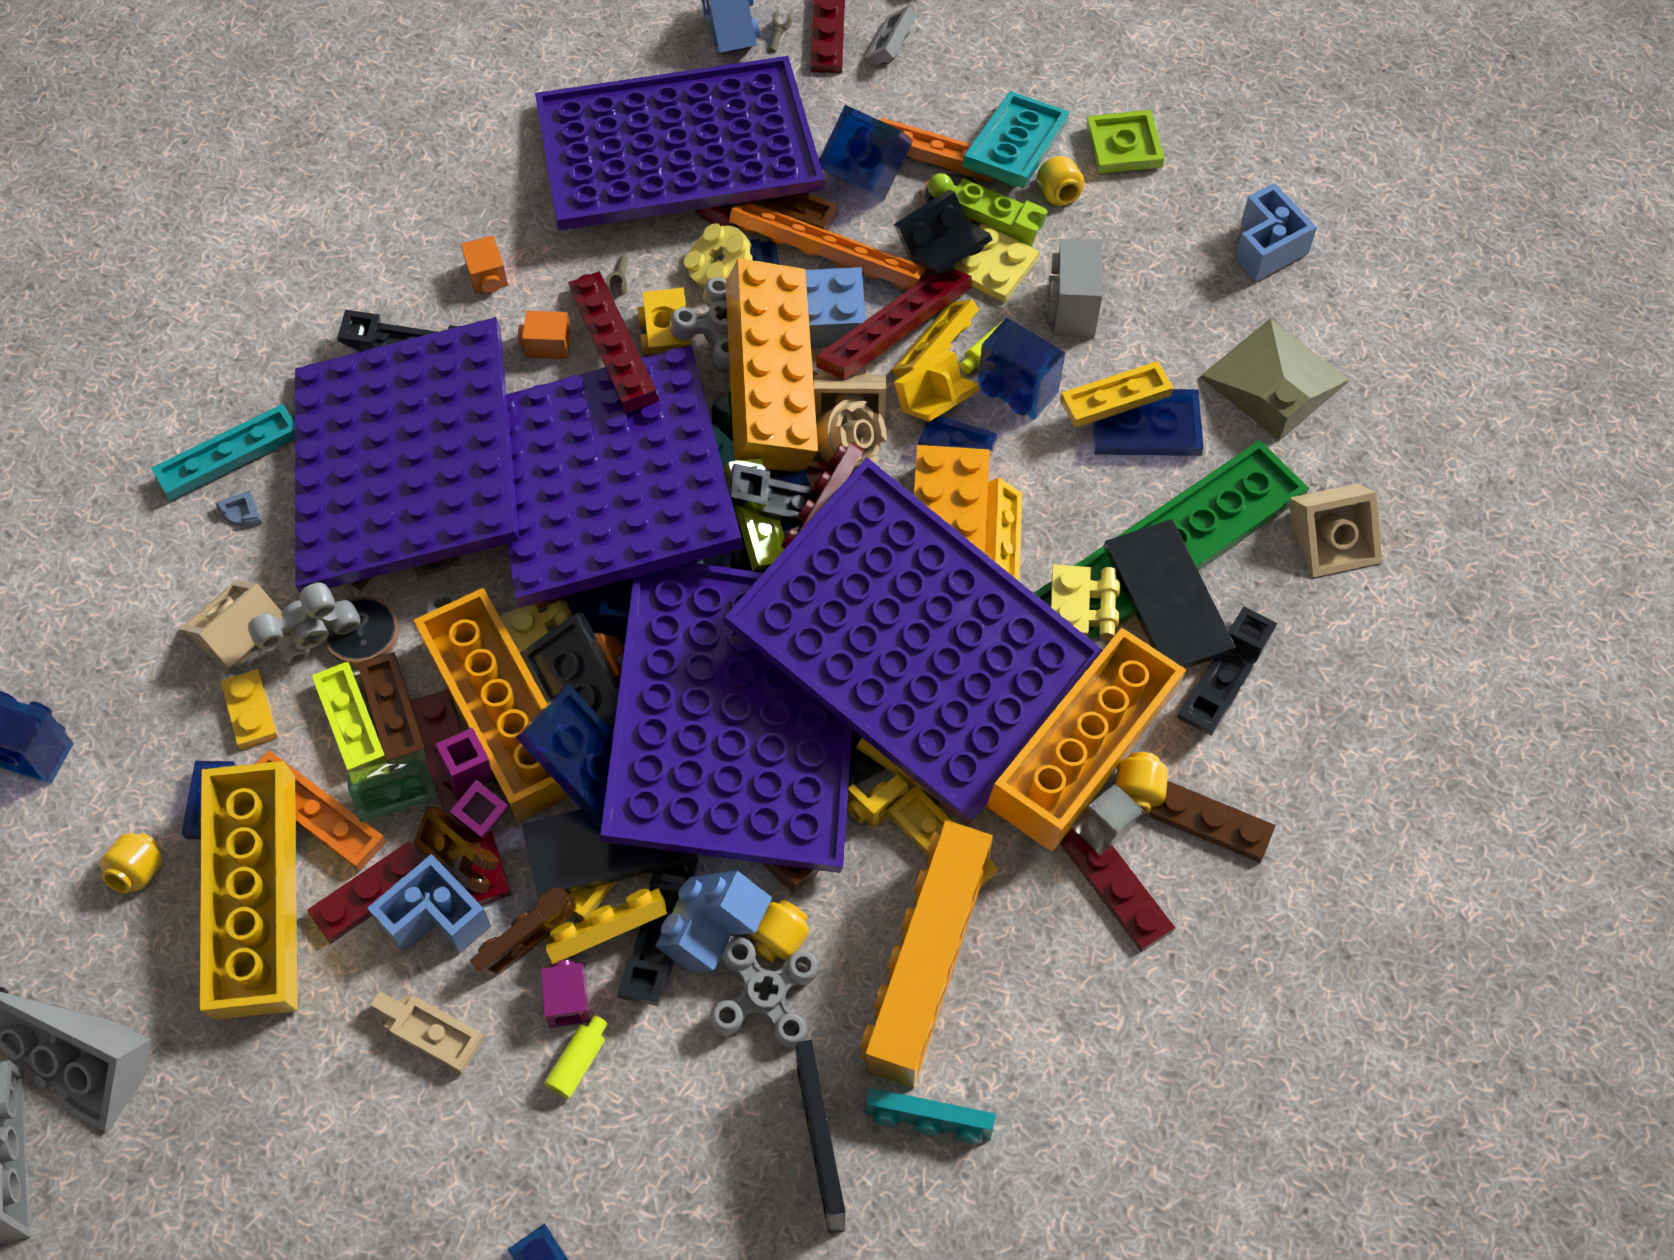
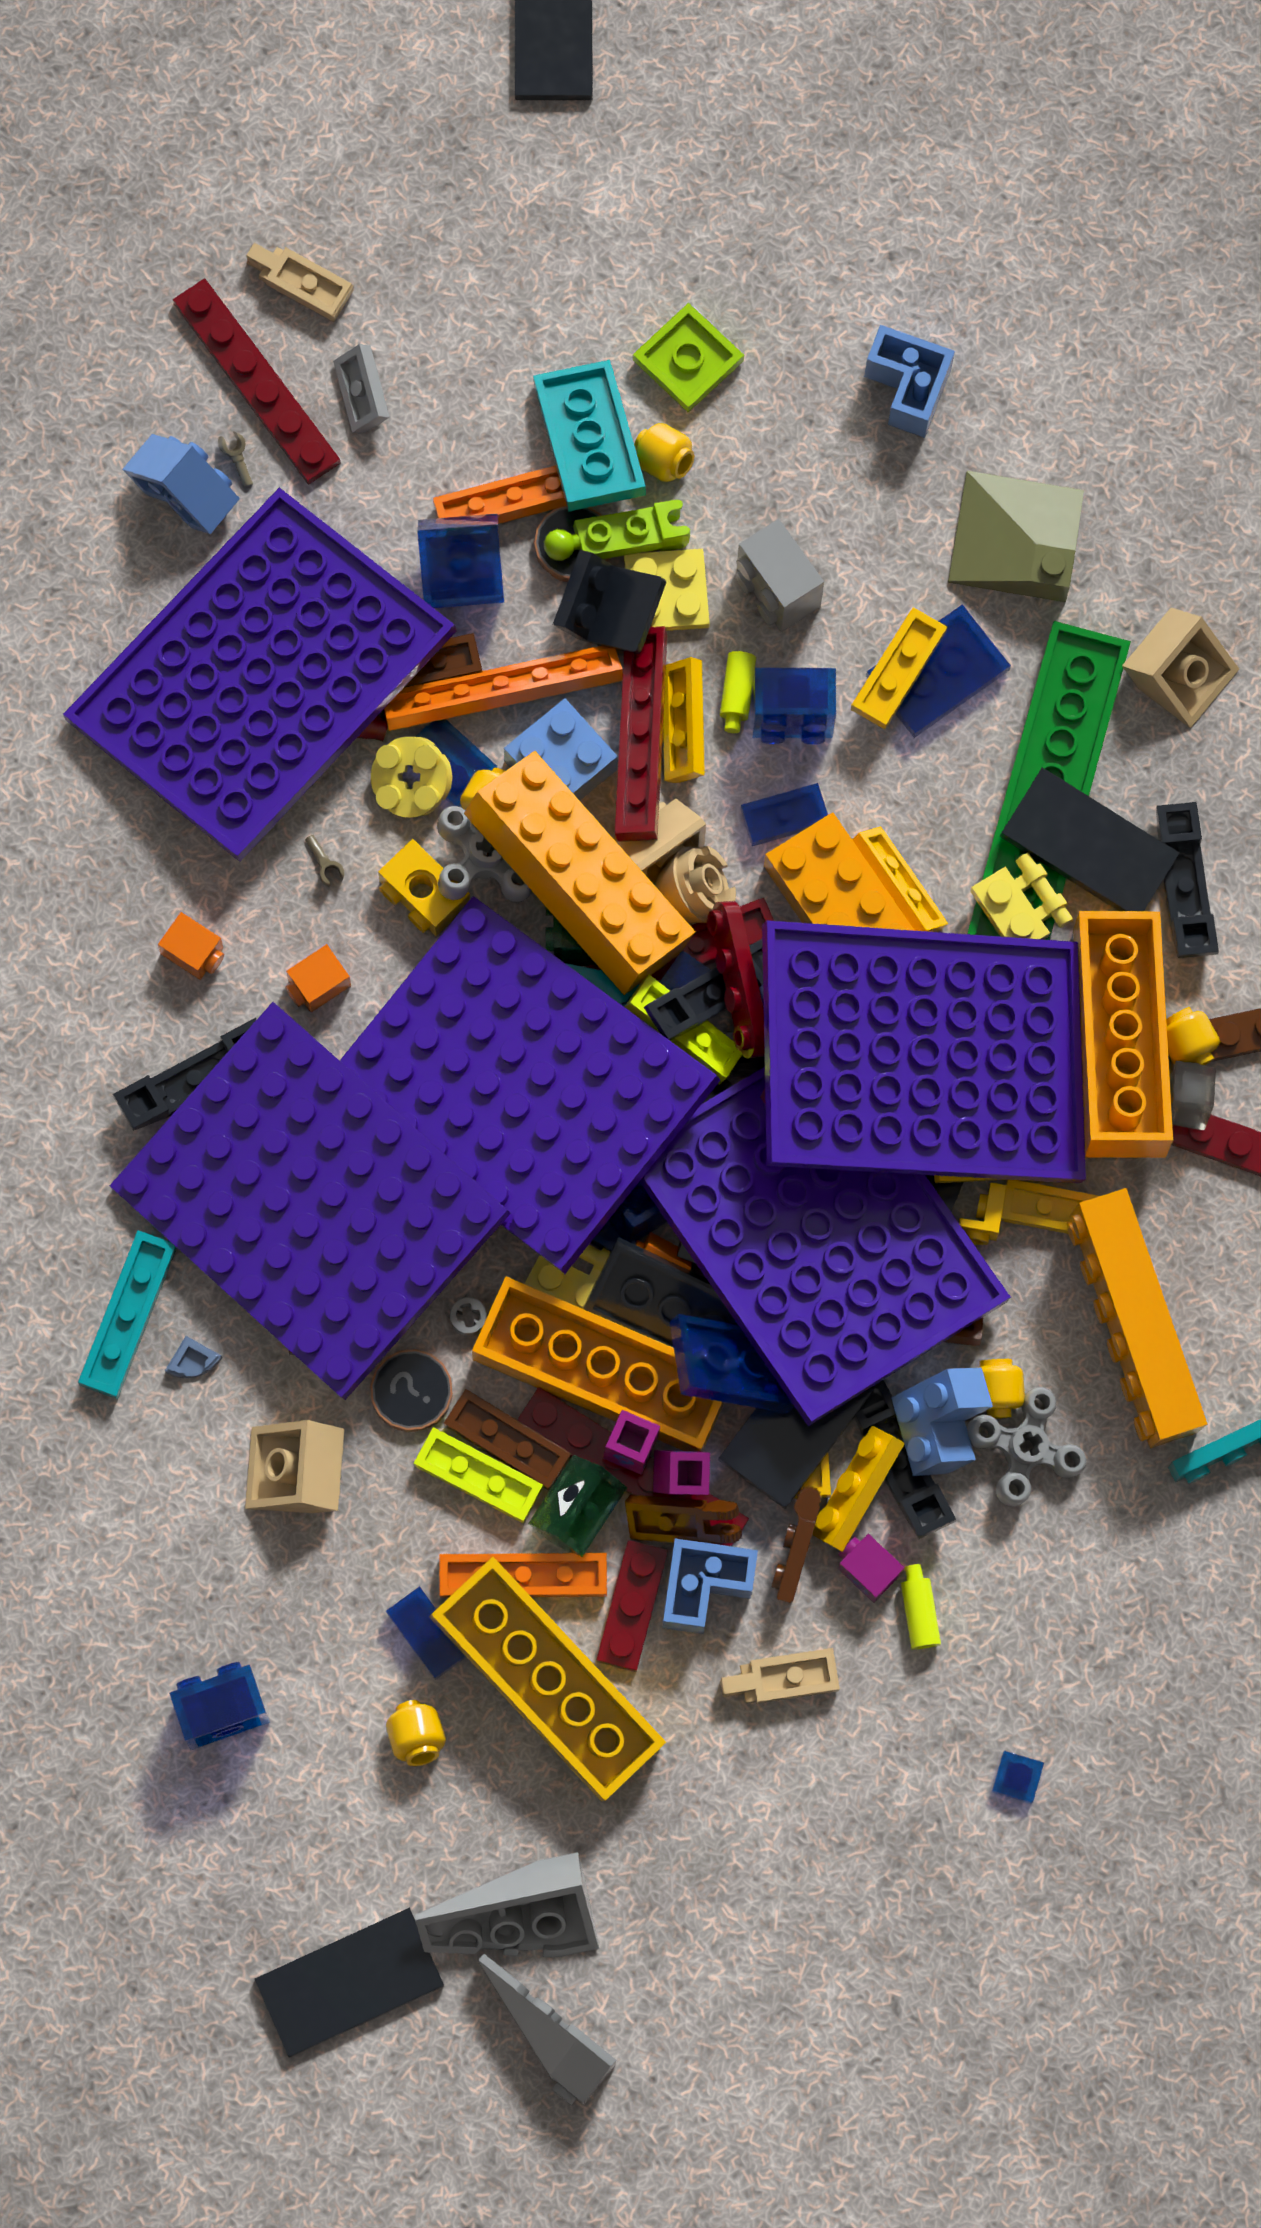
camera: 40 degrees left, 15 degrees up
(249, 709) = (380, 1532): yellow plate -> none
(304, 624) = (379, 1424): light grey gear -> none
(613, 342) = (396, 943): dark red plate -> none
(820, 1137) = (1165, 1527): black tile -> none
(934, 387) = (728, 776): yellow panel -> none

